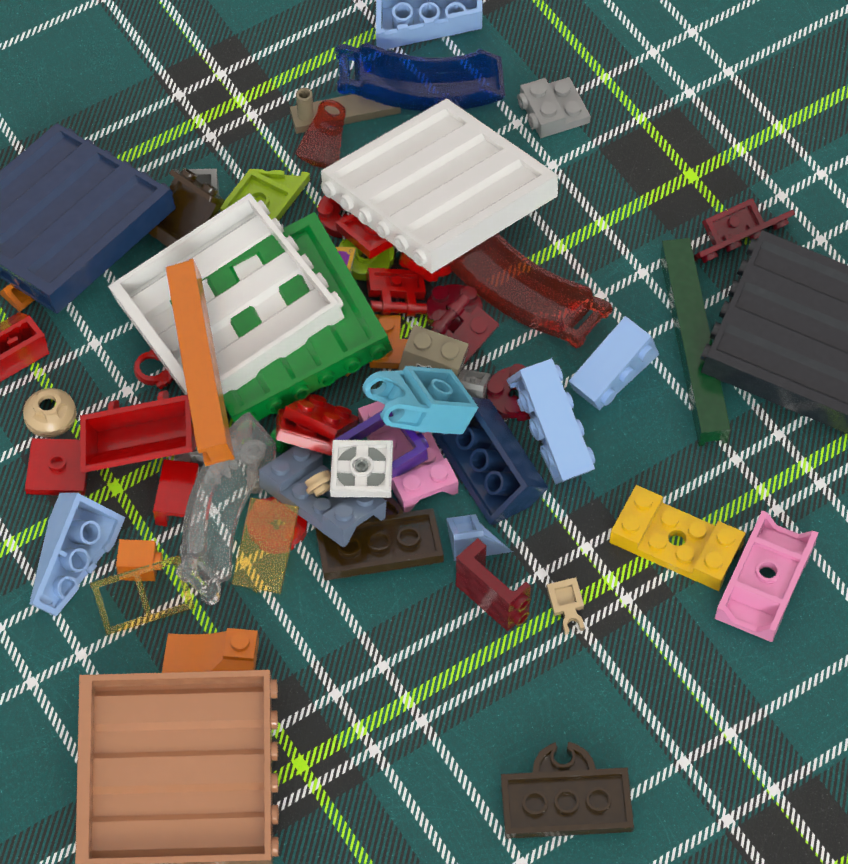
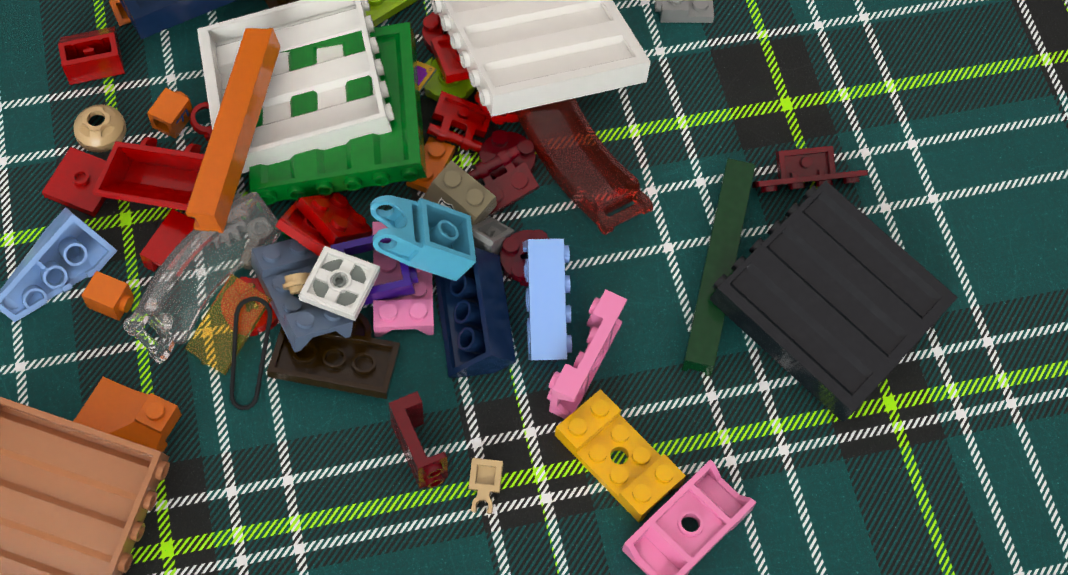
camera: 15 degrees right, 5 degrees up
(114, 374) = (170, 112): none -> orange brick
(149, 616) = (95, 353): clear yellow window -> none
(312, 559) = (234, 352): none -> black piece
(466, 529) = (428, 380): light blue slope -> none
(614, 363) = (631, 261): light blue wedge -> none
(614, 429) = (573, 382): none -> bright pink piece

